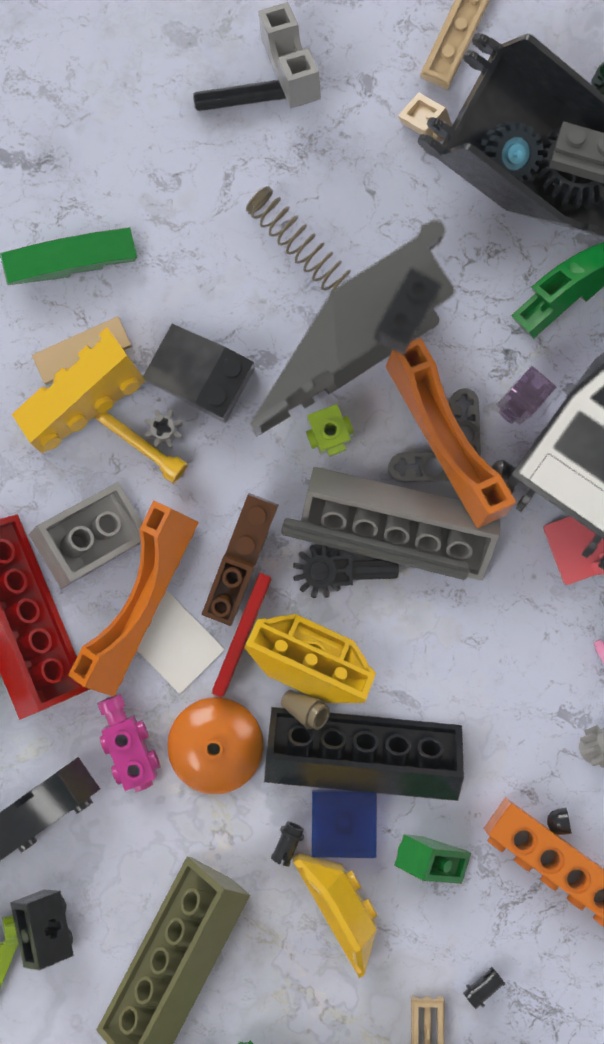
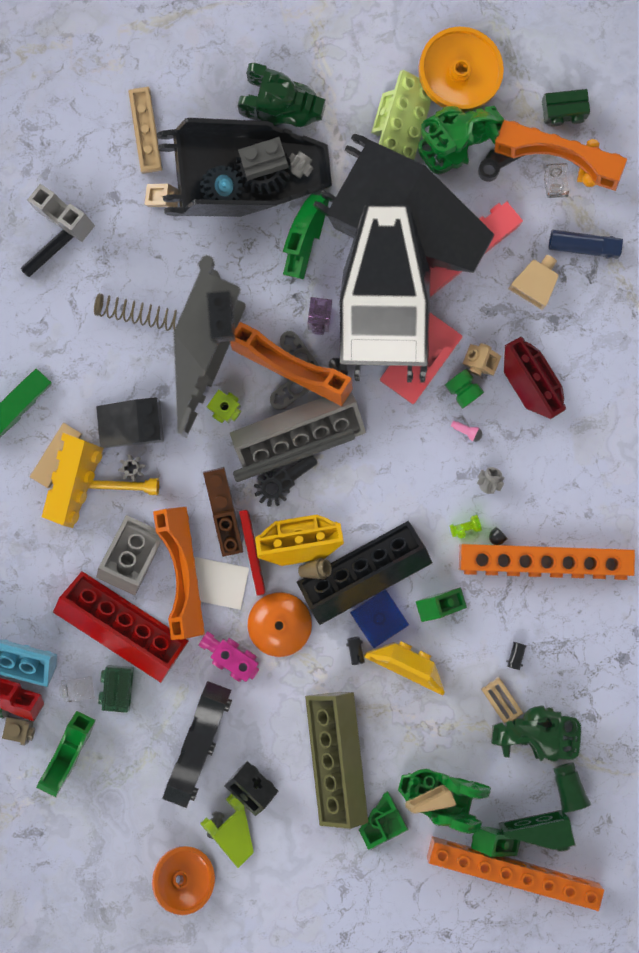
camera: 30 degrees left, 0 degrees up
(520, 781) = (460, 529): none -> clear neon green piece

